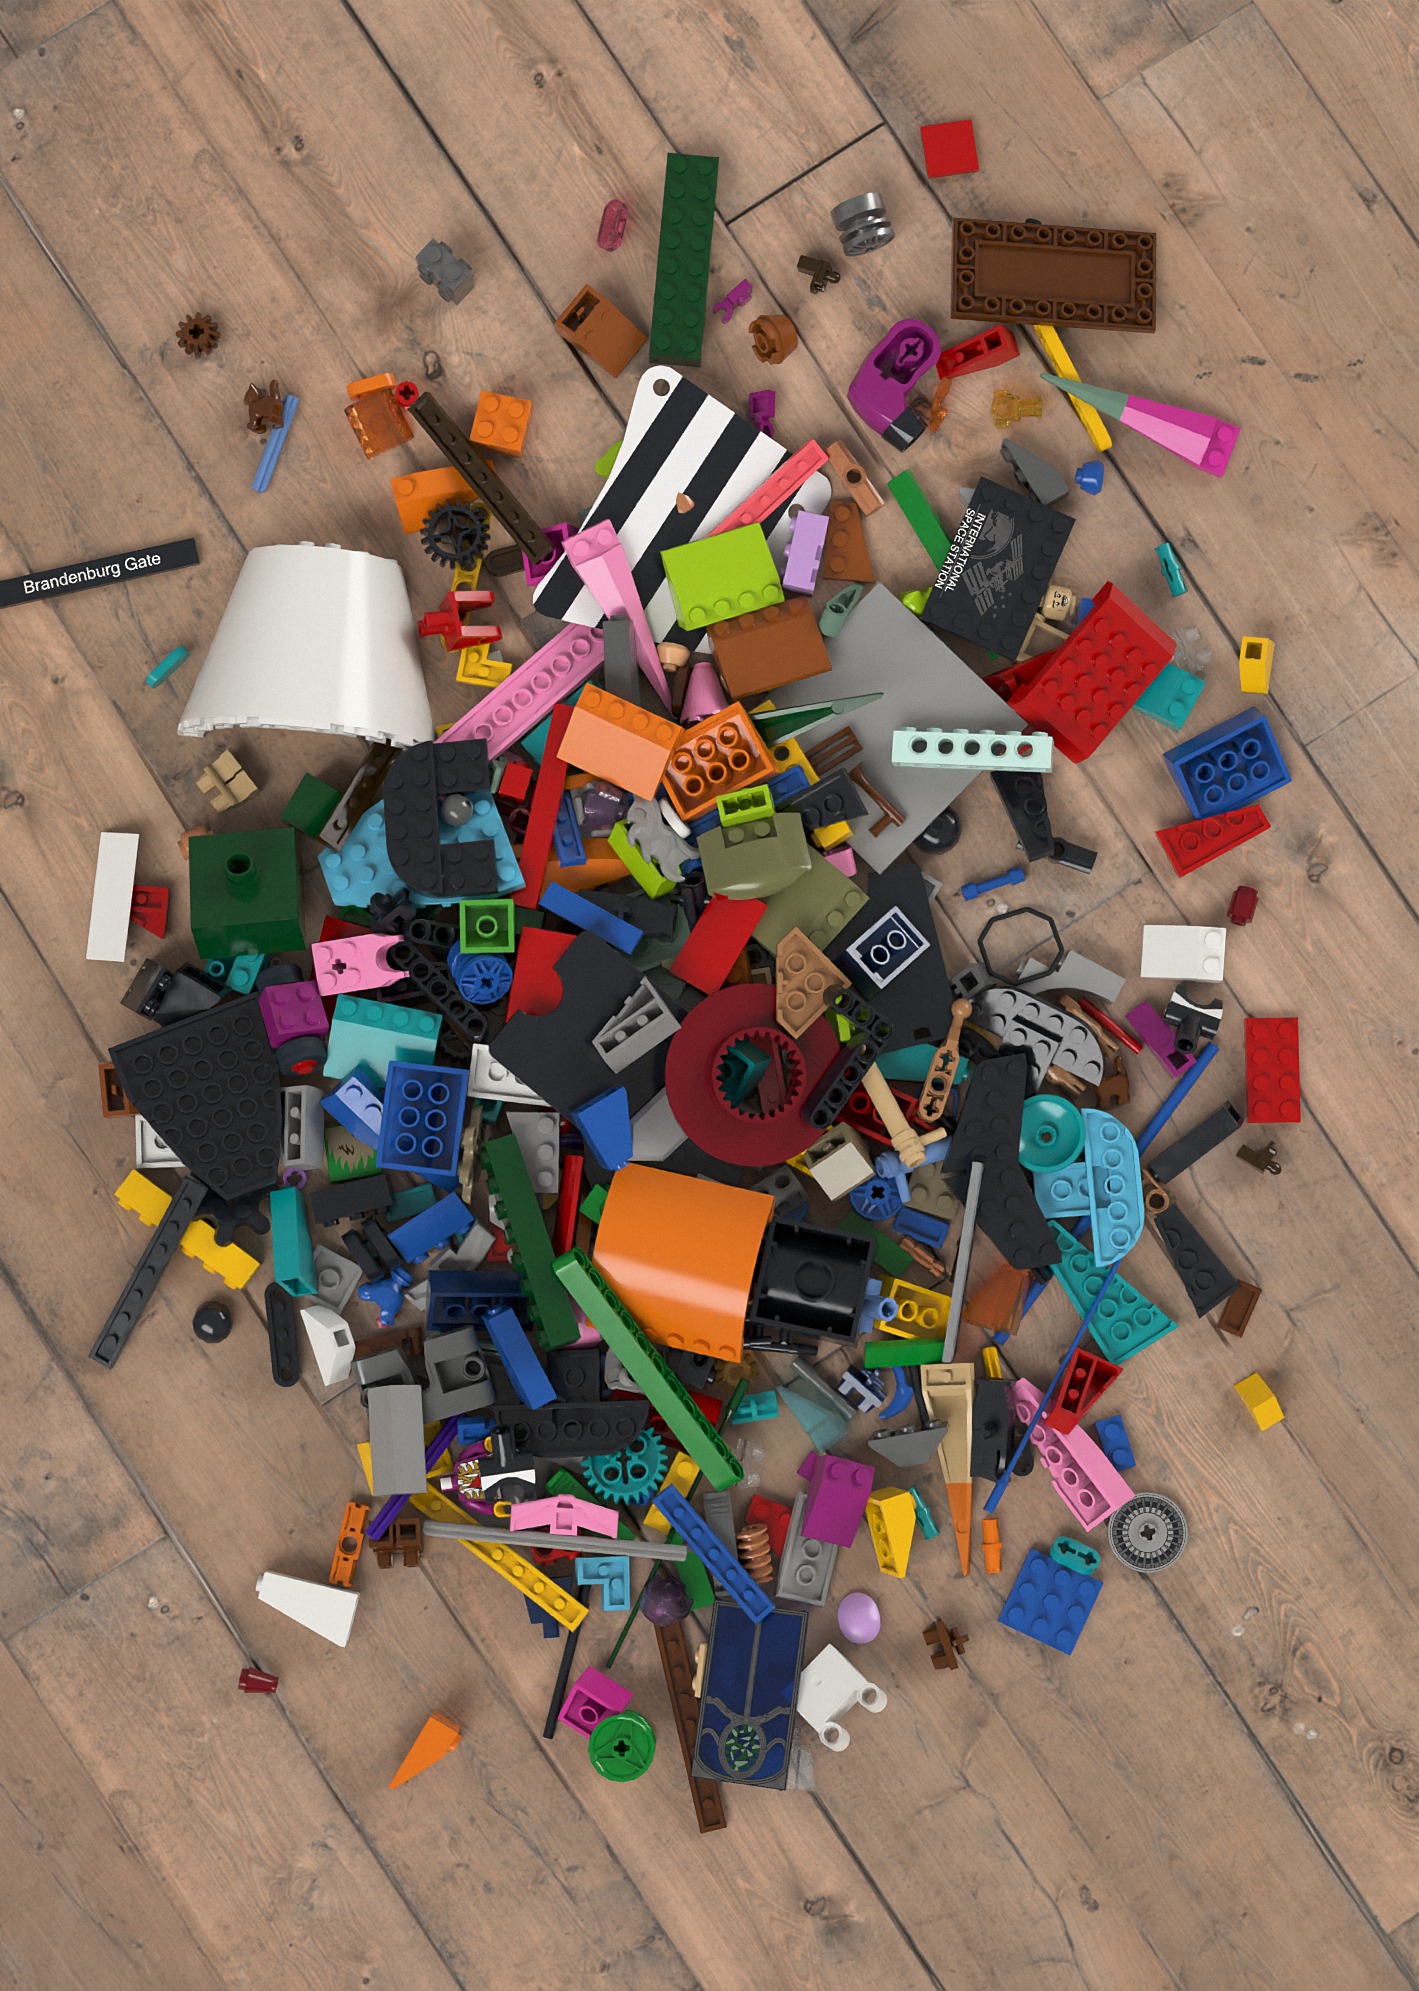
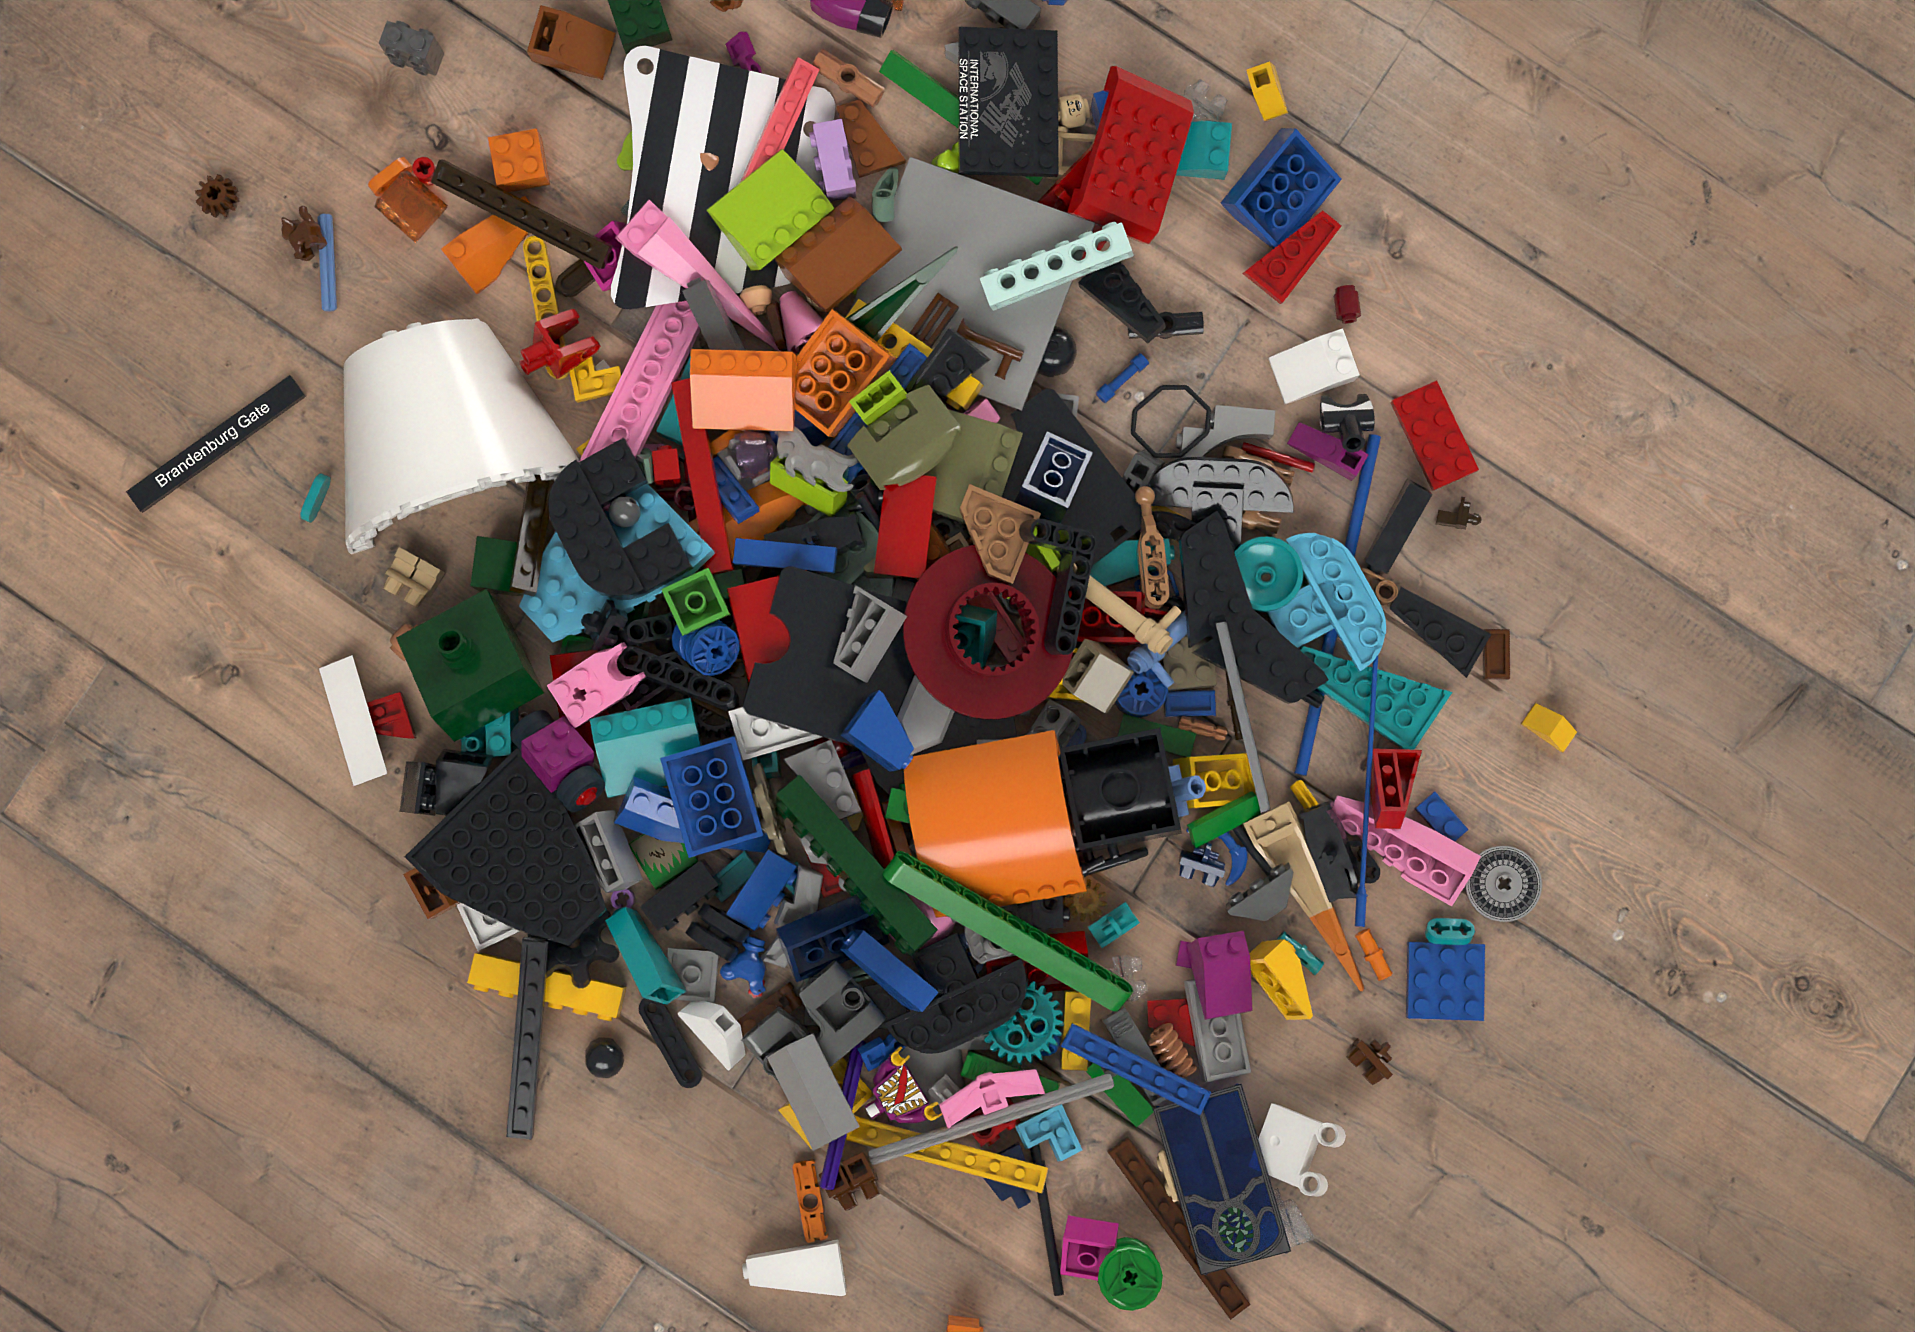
camera: 25 degrees left, 0 degrees up
(443, 536) = (511, 277): black gear -> none
(506, 1464) = (919, 1071): black connector -> none
(665, 1601) = (1110, 1129): clear purple cone -> none
(673, 818) = (820, 437): white tile -> none
(731, 1409) = (1096, 916): dark green piece -> none
(818, 1422) = (1176, 913): clear light blue slope -> none
(836, 1399) = (1181, 885): dark grey piece -> none
(859, 1618) = (1286, 1069): lavender hat -> none
(1001, 1301) = (1289, 737): clear orange slope -> none
(1114, 1085) = (1305, 507): reddish brown animal -> none
(1171, 569) = (1158, 41): teal pin -> none

